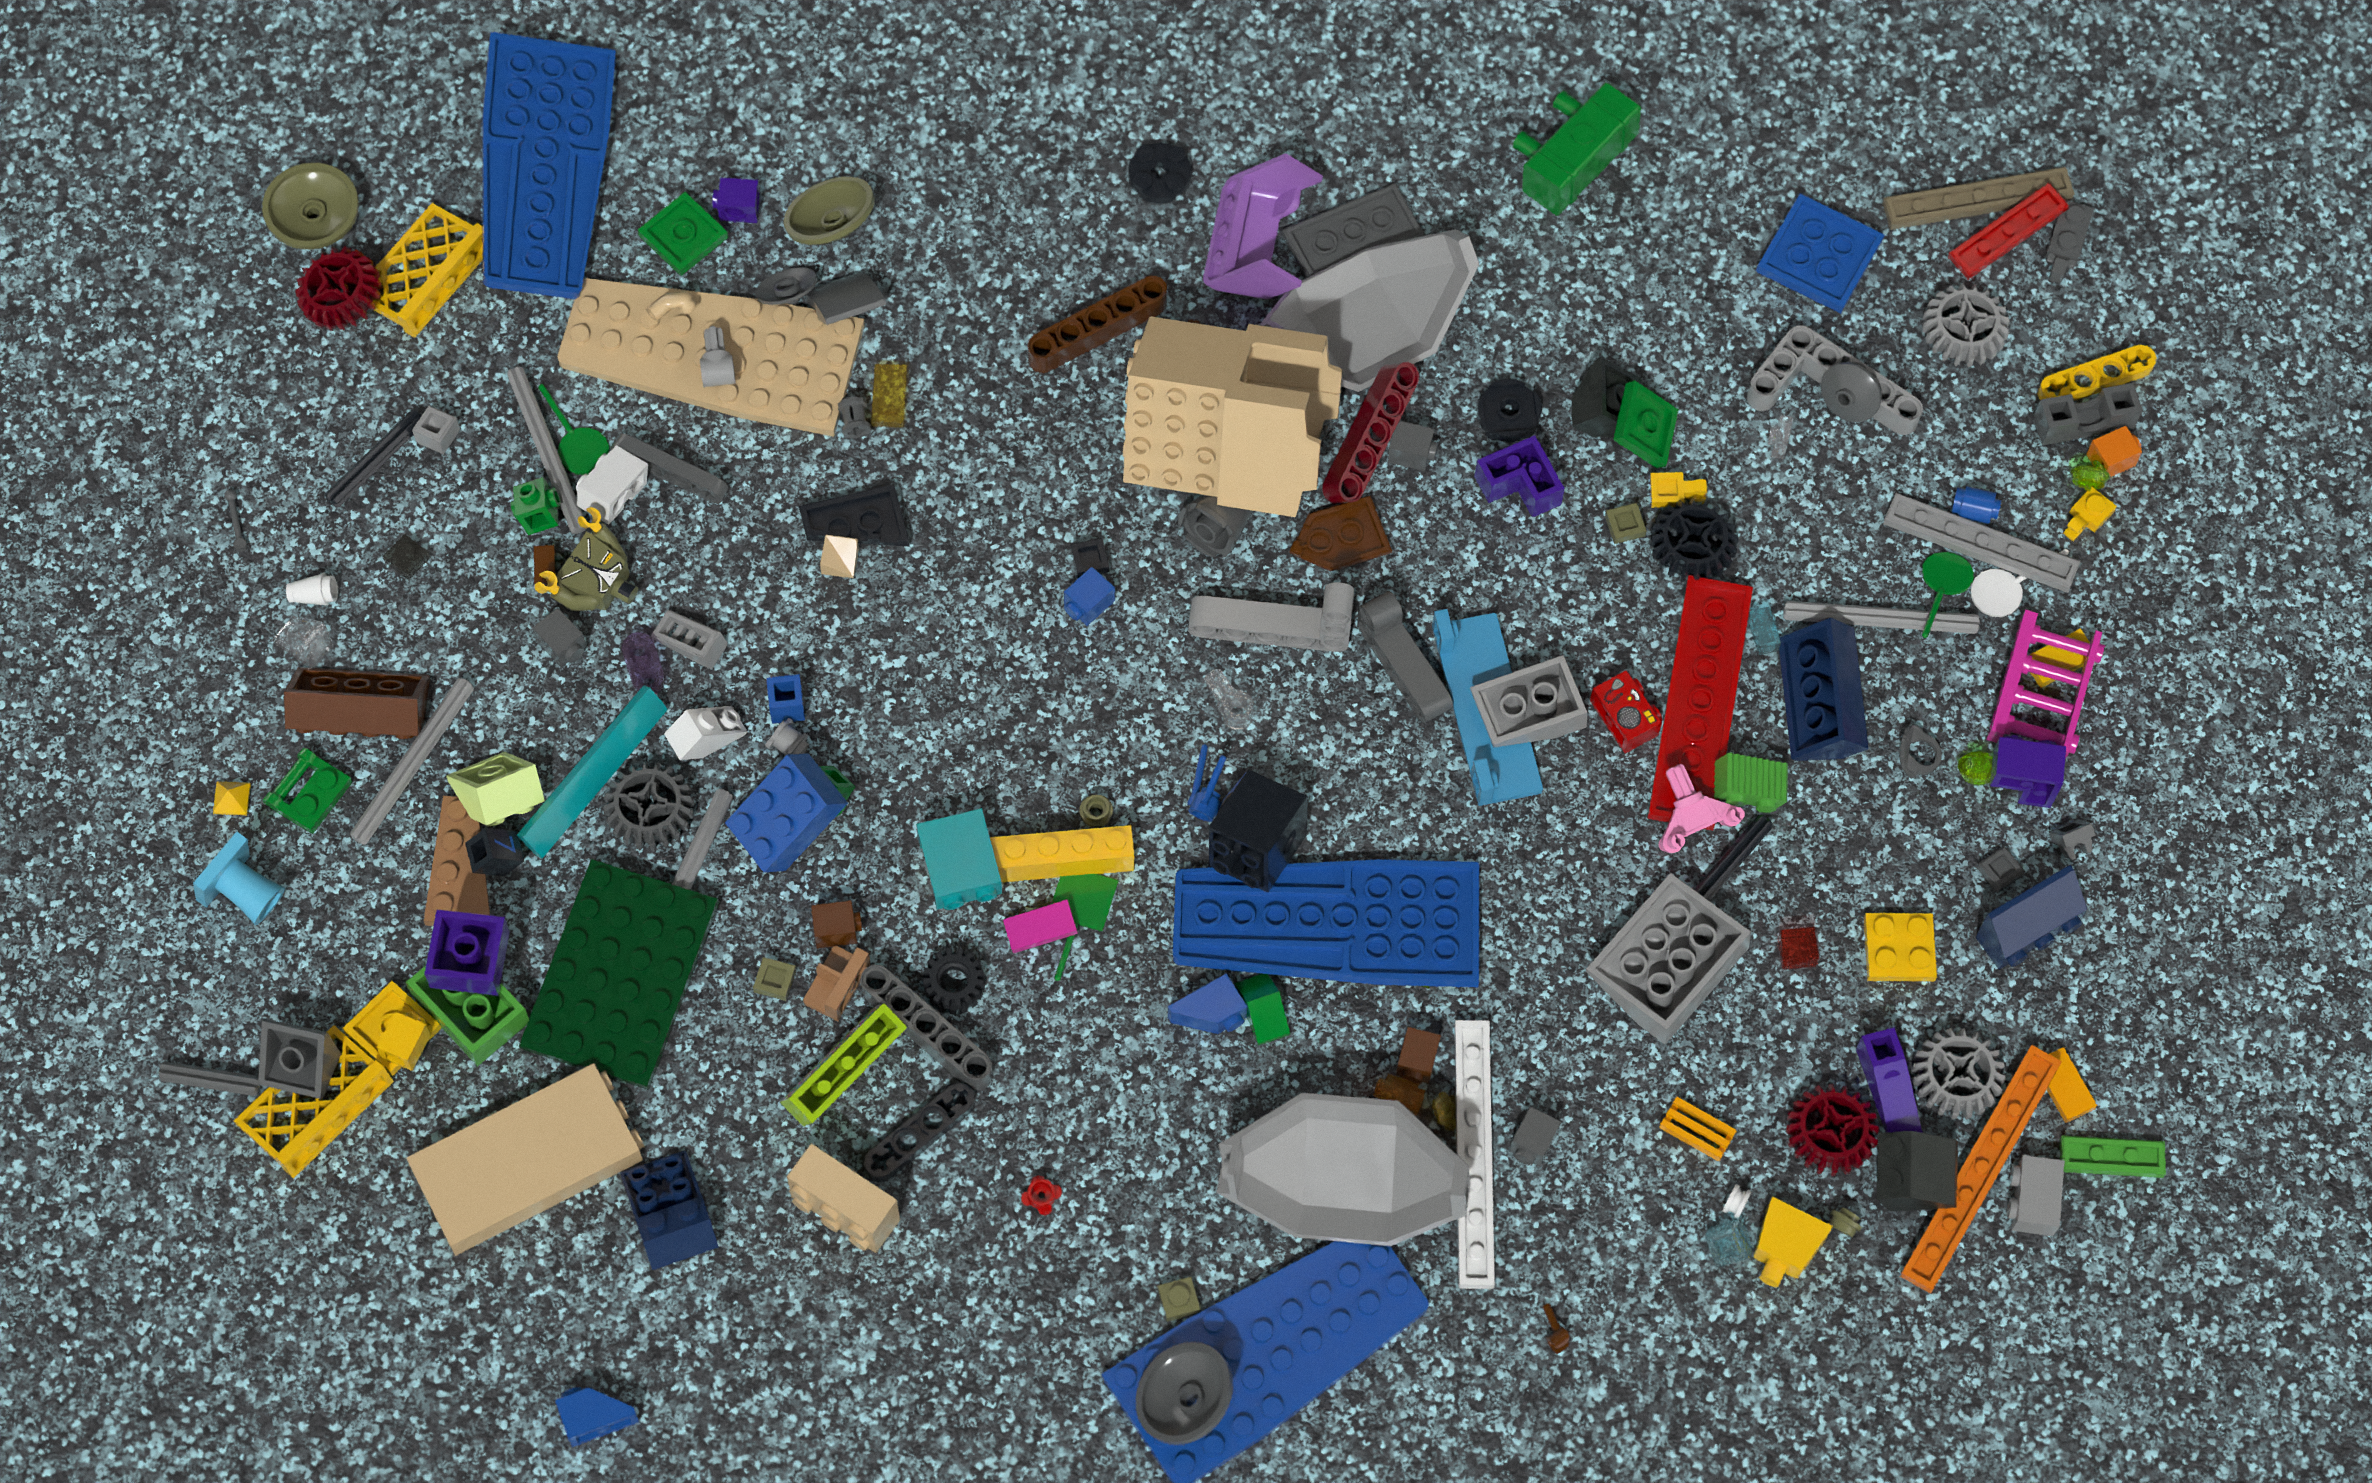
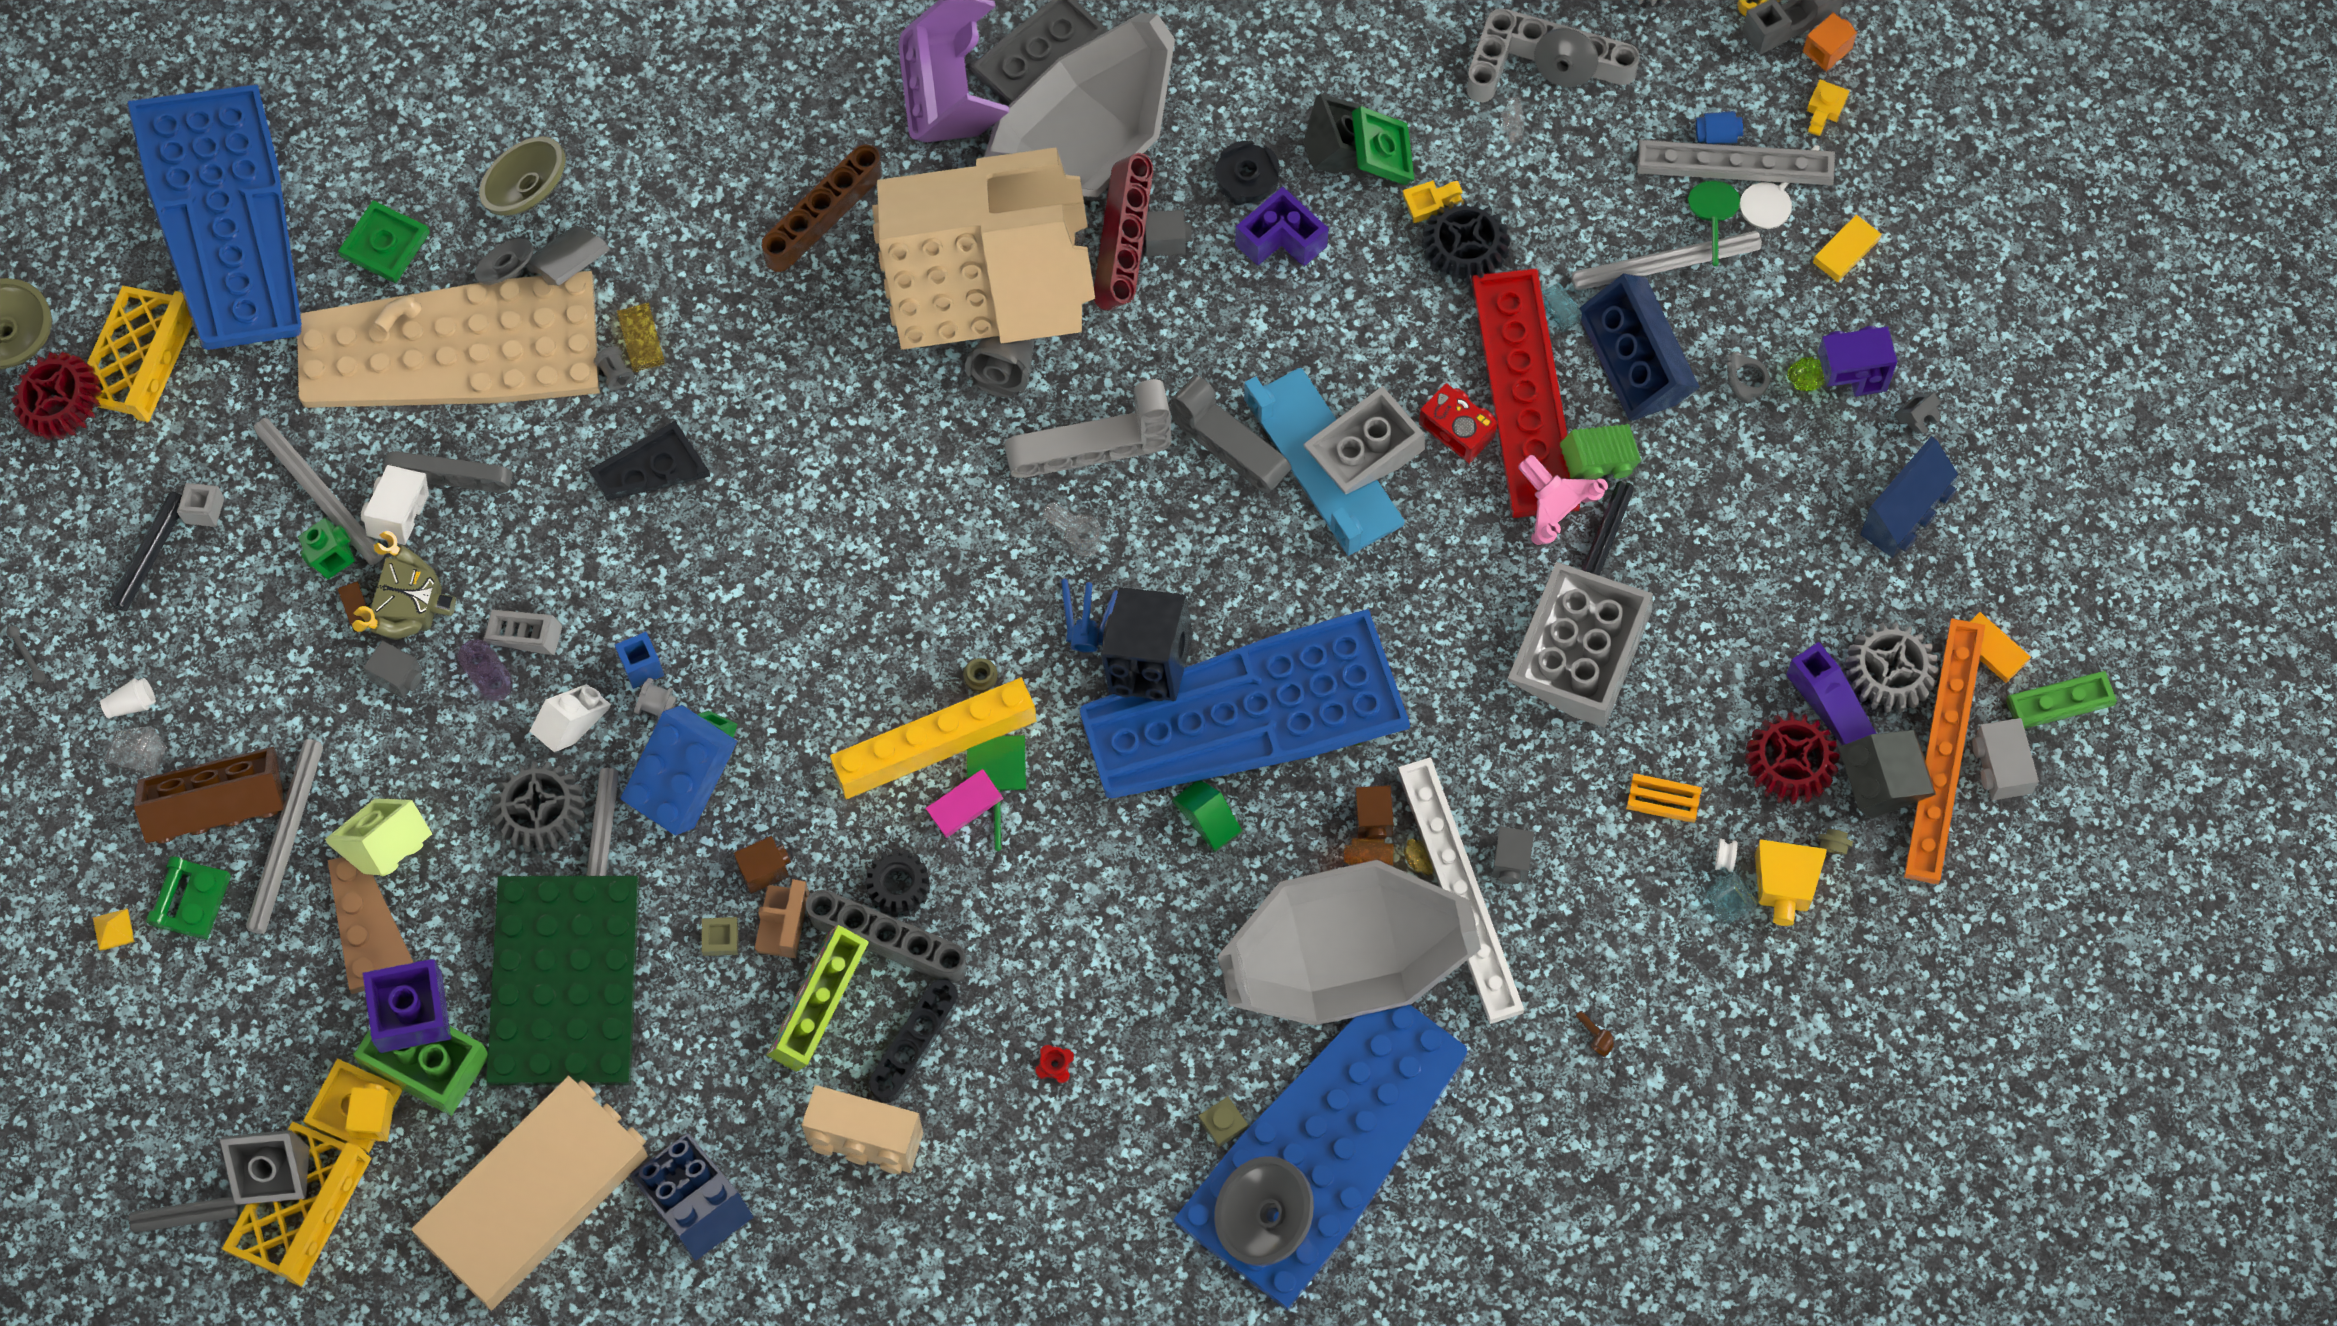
camera: 15 degrees left, 0 degrees up
(238, 882) = (149, 1010): medium azure plant -> none
(406, 557) = (212, 638): clear smoke plate -> none
(494, 852) = (398, 899): black brick -> none
(579, 447) = (351, 479): green piece -> none
(592, 772) = (470, 791): teal tile -> none
(716, 363) = (461, 355): light grey axle -> none
(737, 200) = (427, 193): dark purple brick -> none
(839, 556) = (645, 506): tan slope -> none
(959, 859) = (865, 762): teal panel -> none
(1088, 555) = (891, 433): black plate -> none
(1088, 597) = (903, 471): blue brick -> none
(1163, 156) = (830, 30): black plate -> none
(1210, 1008) = (1158, 829): blue slope -> none
(1342, 536) = (1128, 339): reddish brown tile -> none
(1625, 523) = (1395, 245): olive plate -> none
(1798, 948) = (1699, 596): clear red slope -> none
(1900, 947) = (1793, 565): yellow plate -> none
(2001, 869) = (1861, 463): dark grey tile -> none
(2021, 662) = (1813, 263): dark pink fence -> none
(2090, 476) = (1816, 69): clear neon green hat -> none

